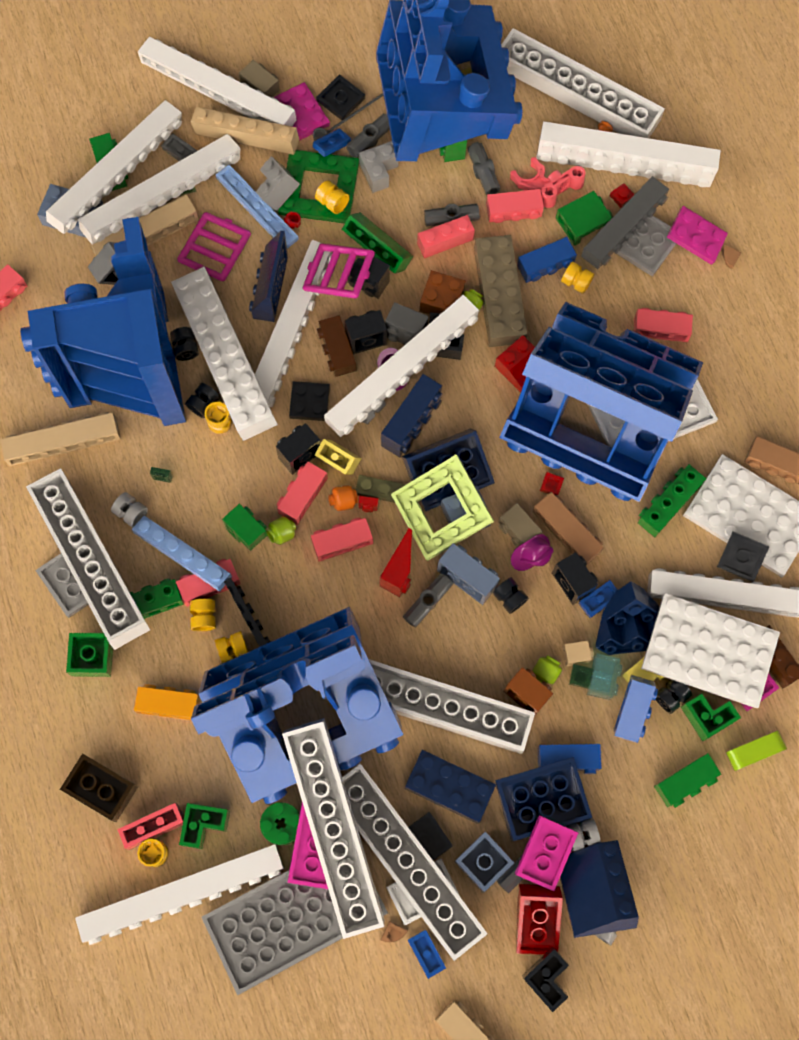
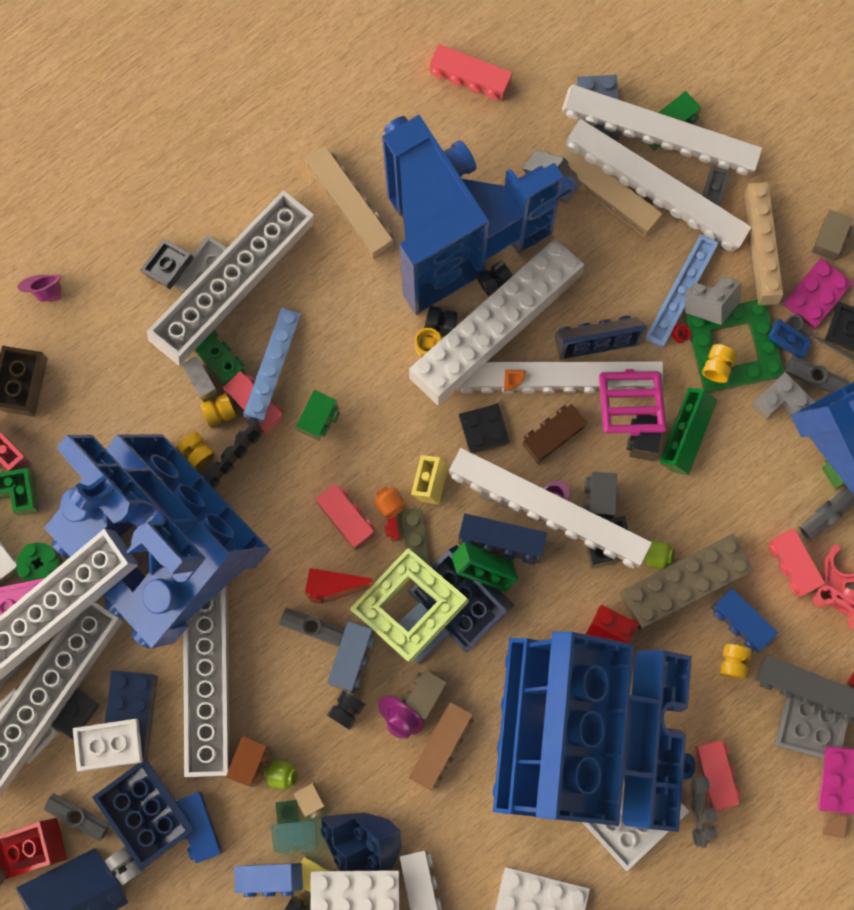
camera: 75 degrees right, 5 degrees up
(17, 736) = (42, 287): none -> magenta piece
(47, 614) = (167, 264): none -> plate
(89, 655) = (137, 317): green brick -> none
(127, 508) = (299, 296): light grey wheel -> none
(161, 474) = (347, 313): clear green tile -> none
(165, 702) = (120, 407): light orange brick -> none
(169, 619) = (200, 379): none -> flat silver piece
(198, 230) = (607, 288): dark pink bar -> none
(214, 83) = (805, 193): white brick -> none
(278, 358) = (513, 379): none -> orange tile
(281, 530) = (332, 453): lime head -> none
(298, 448) = (422, 435): black brick -> none
(302, 492) = (380, 458): coral brick -> none
(366, 331) = (578, 456): black brick -> none
(431, 435) = (484, 567): none -> green brick
(440, 292) = (656, 520): dark orange brick -> none
(441, 215) = (763, 511): dark grey piece -> none
(445, 236) = (727, 501): coral brick -> none
(472, 810) = (107, 745): none -> white tile
(484, 862) = (61, 777): sand blue brick -> none
(546, 853) = (89, 833): dark pink plate -> none
(551, 483) = (485, 713): red plate -> none
(575, 578) = (386, 770): black brick -> none
(583, 216) = (814, 644): green panel -> none
(598, 599) = (376, 804): blue plate -> none
(671, 500) = (514, 848): green brick -> none
(706, 354) = (702, 835): none -> dark grey plant

